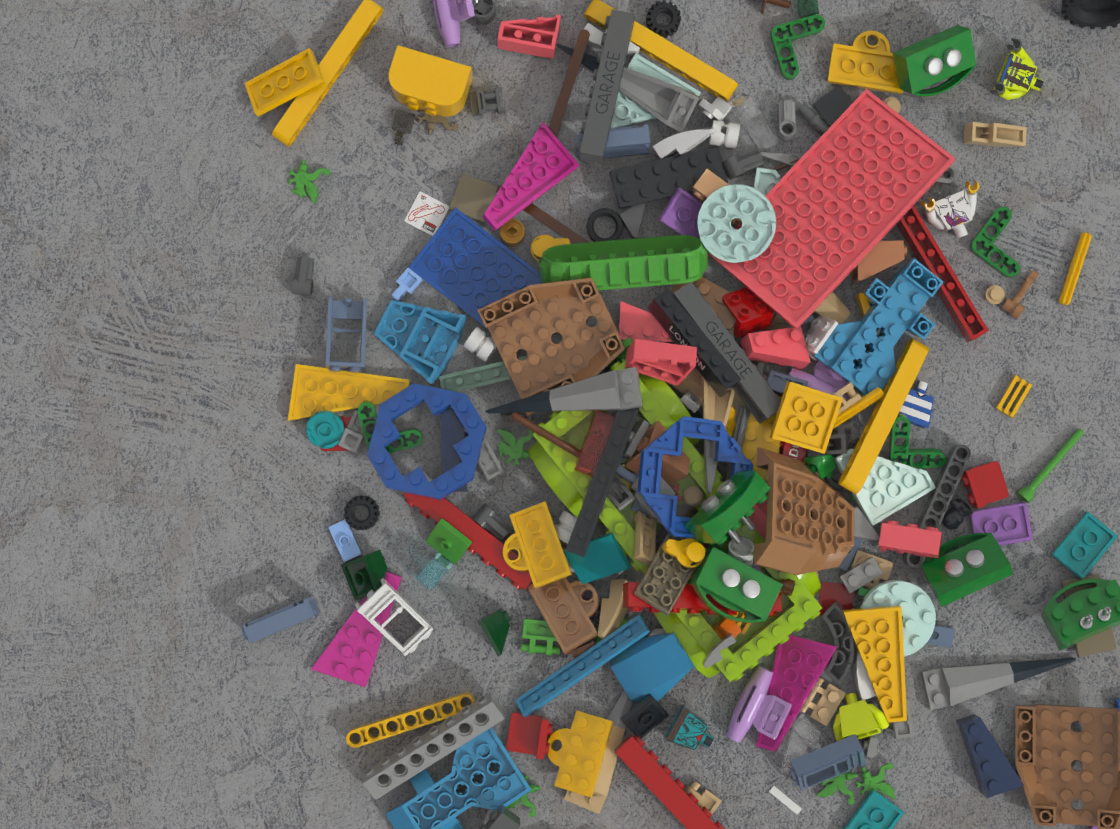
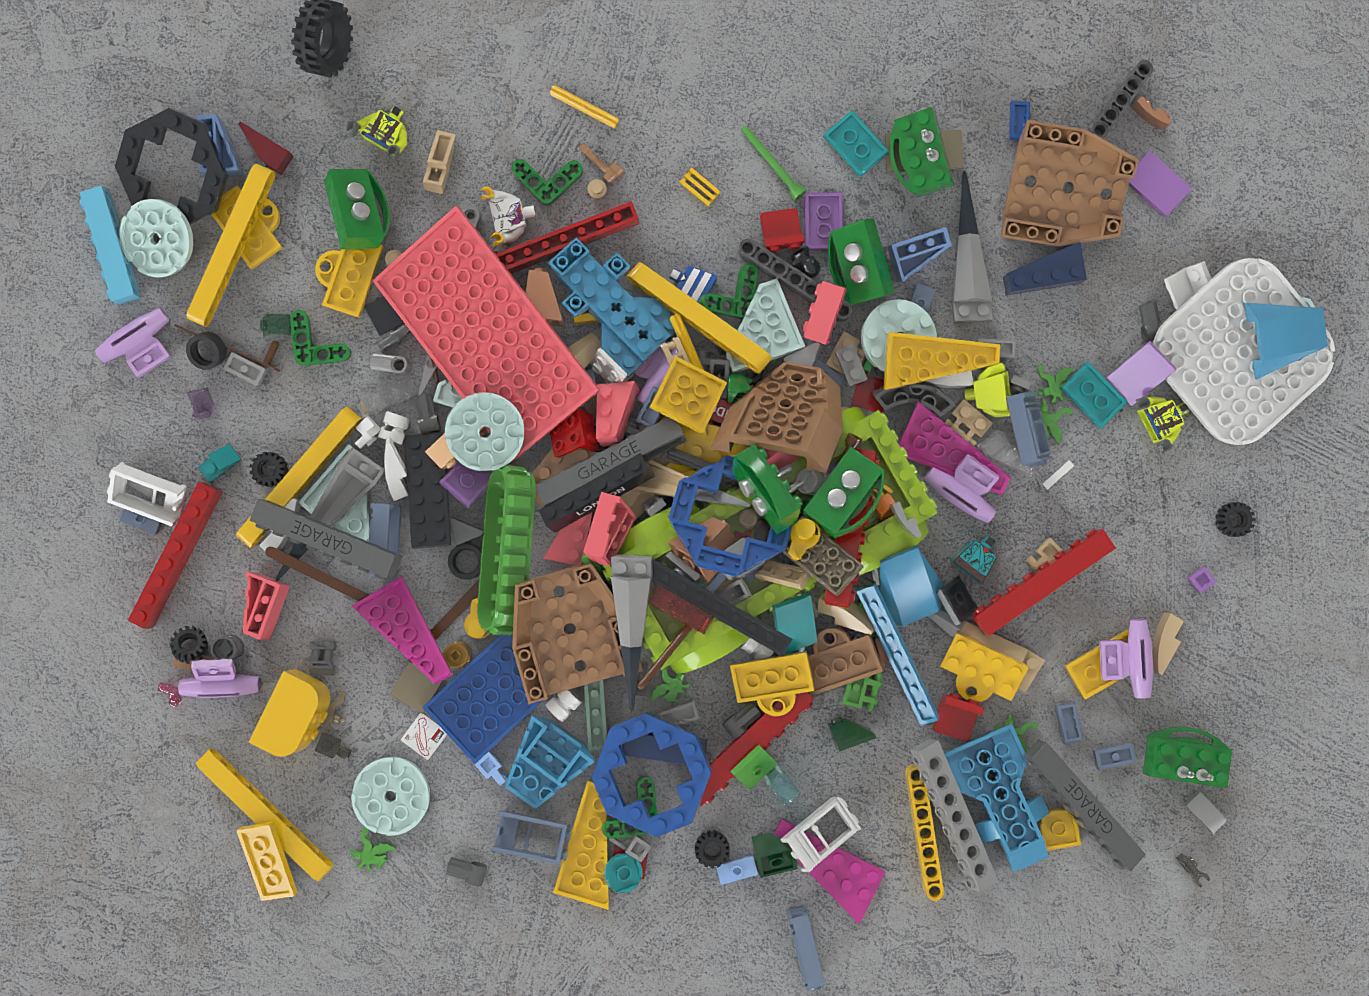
camera: 85 degrees left, 0 degrees up
(360, 171) = (376, 810): none -> light aqua plate
(986, 623) = (915, 252): none -> medium blue wedge

